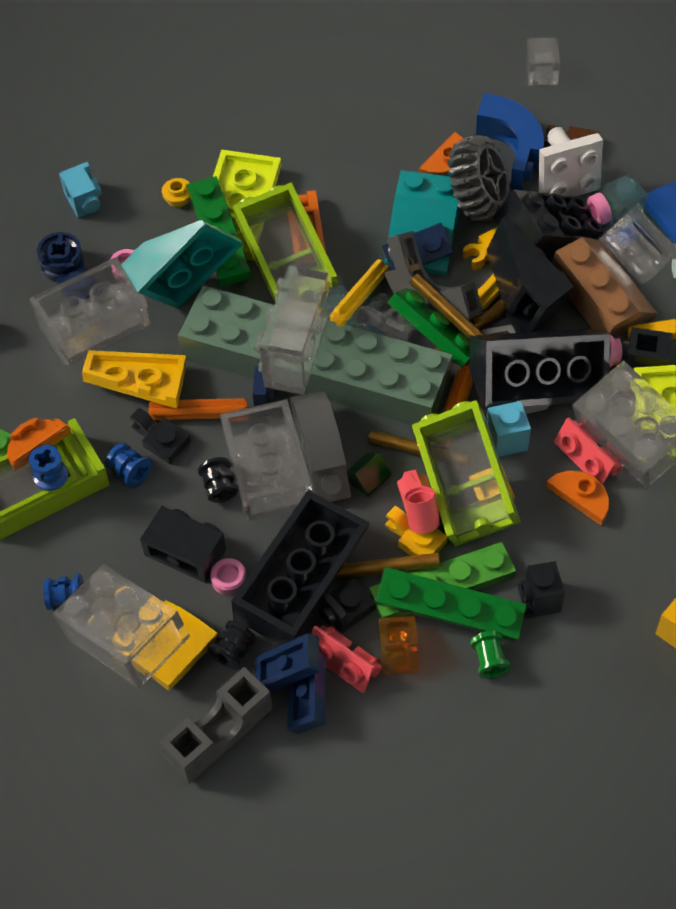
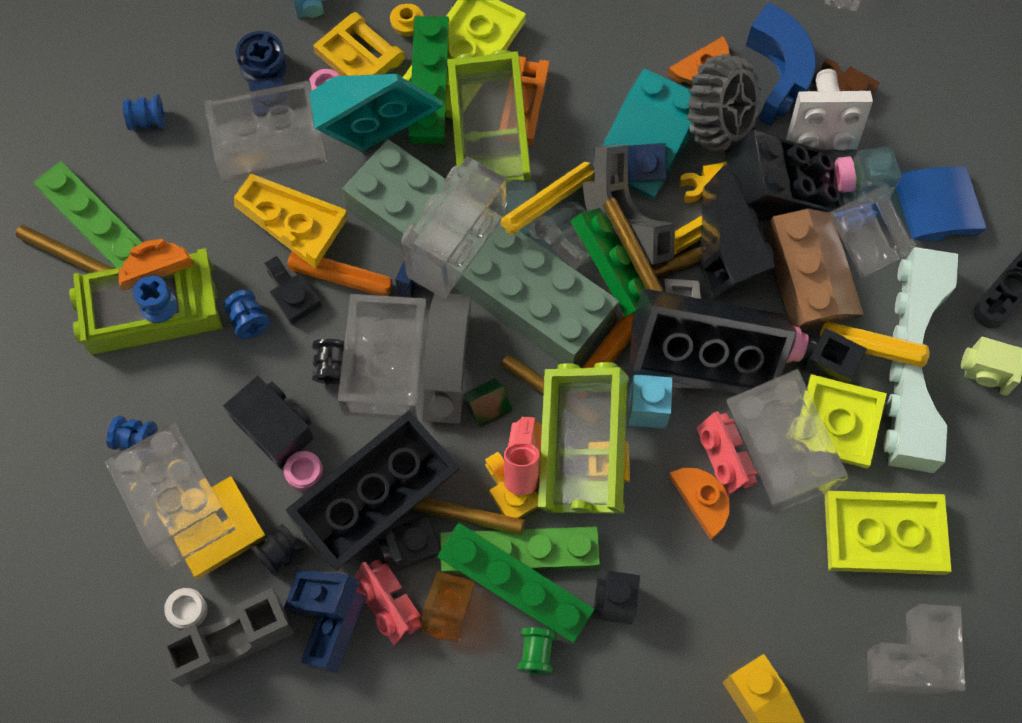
camera: 15 degrees right, 10 degrees up
(131, 232) = (349, 56): none -> yellow plate
(165, 717) = (185, 608): none -> white tile

